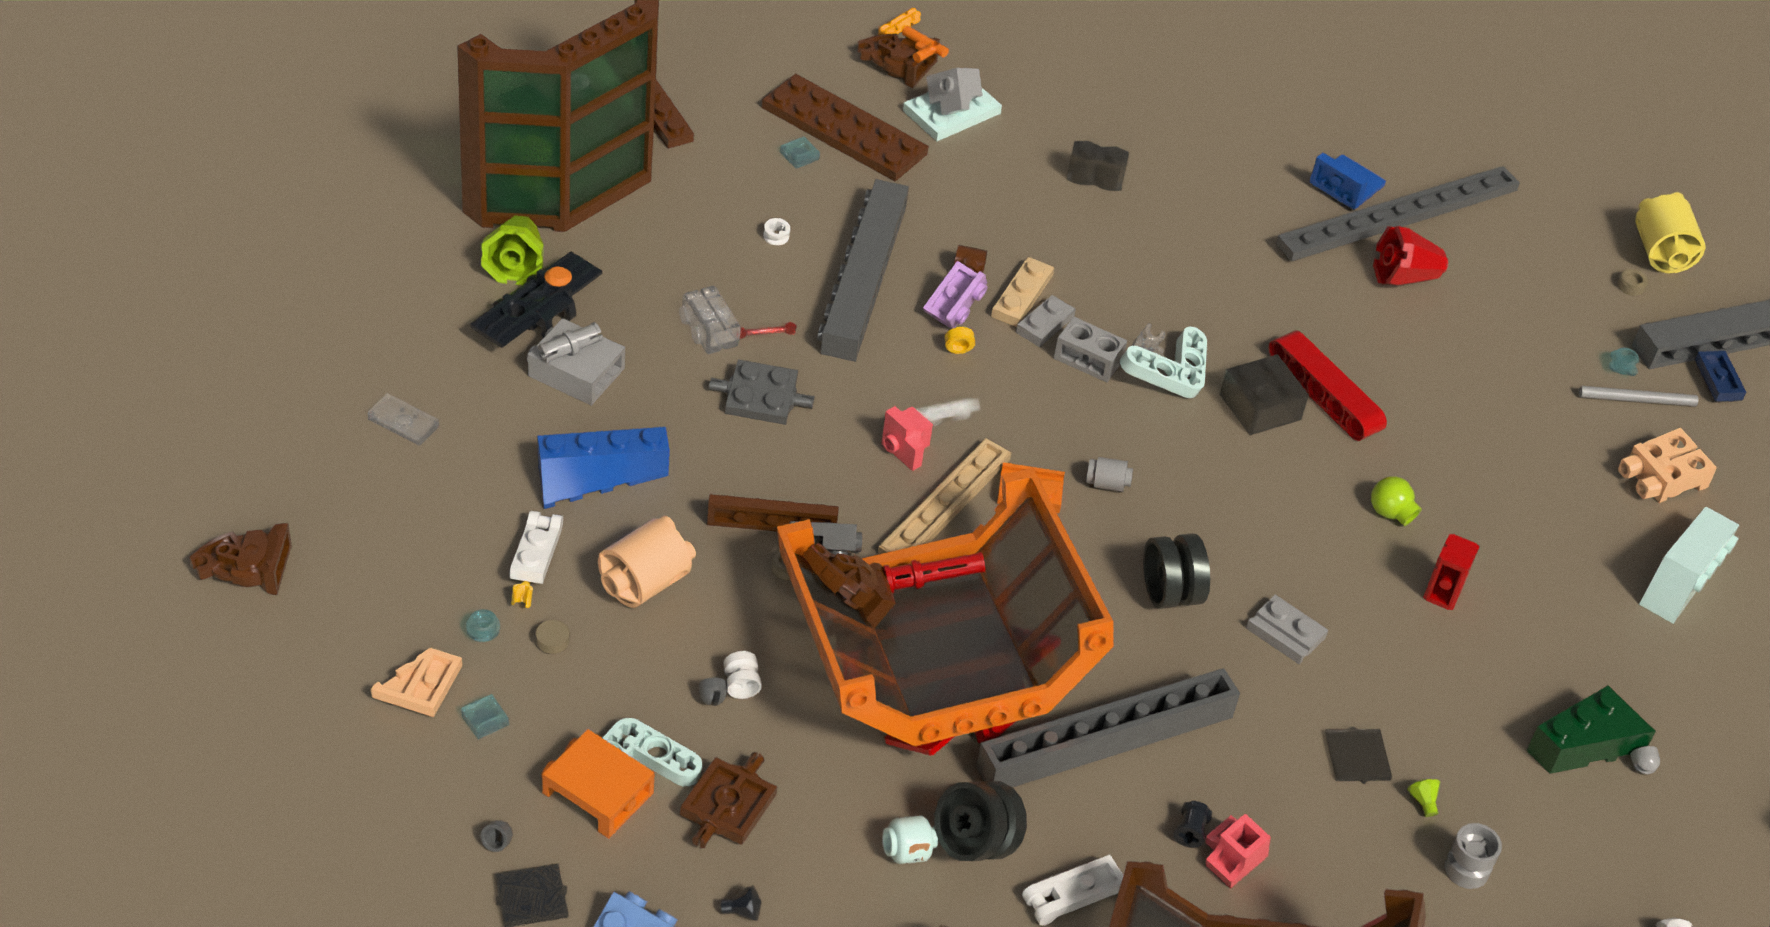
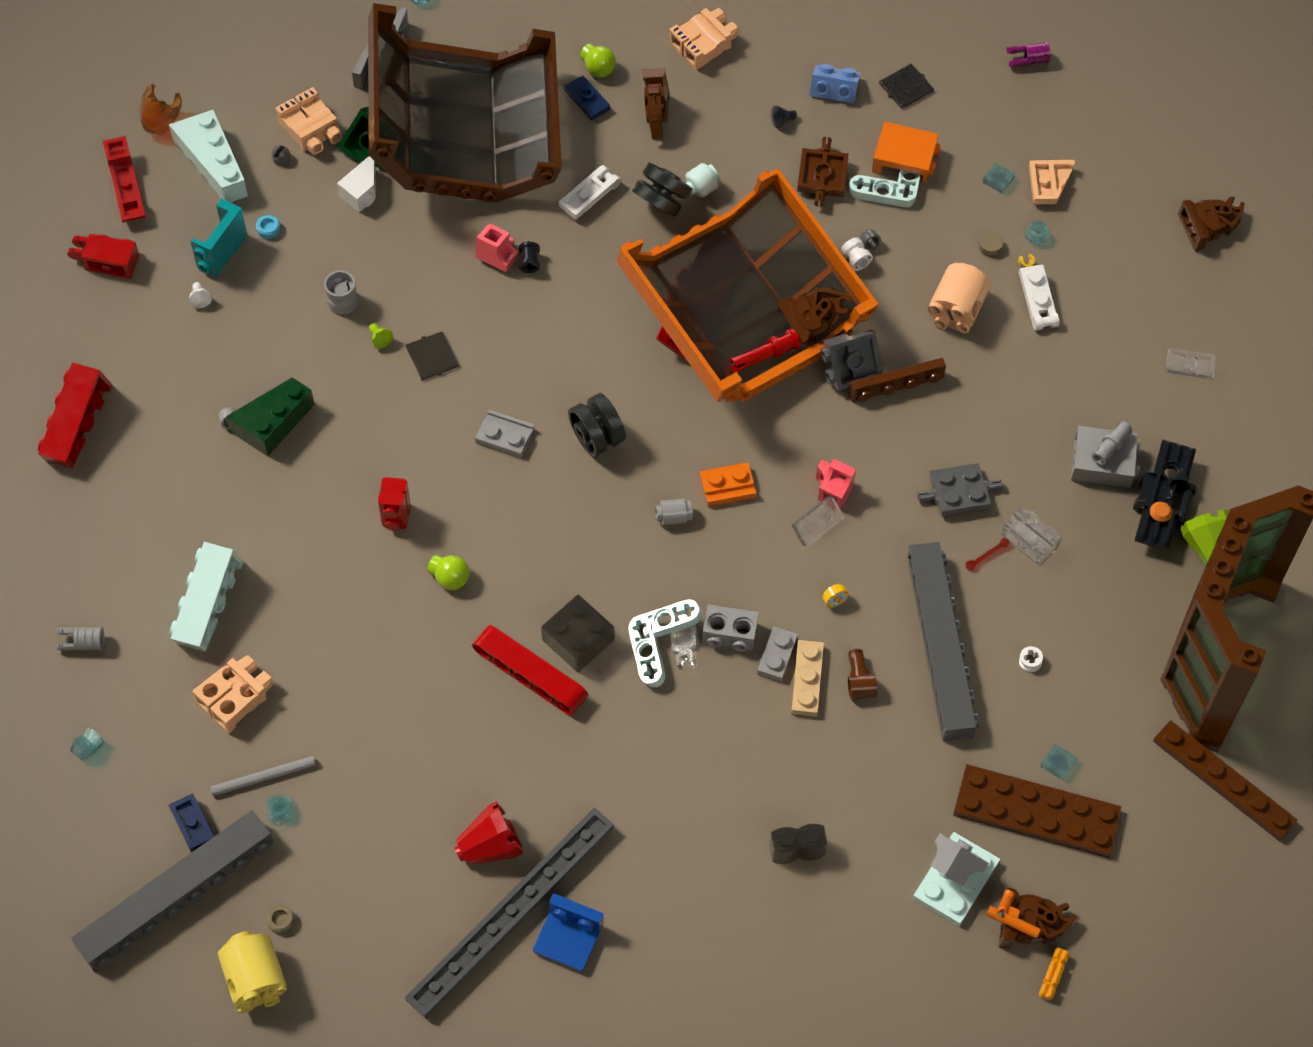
camera: 165 degrees right, 15 degrees up
(324, 865) = (1032, 54): none -> magenta hinge
(491, 833) = (945, 105): dark grey hinge -> none
(599, 461) = (1047, 371): blue wedge -> none
(948, 498) = (784, 449): tan tile -> none
(955, 295) = (854, 630): lavender bracket -> none
(1108, 729) = (586, 304): dark grey brick -> none

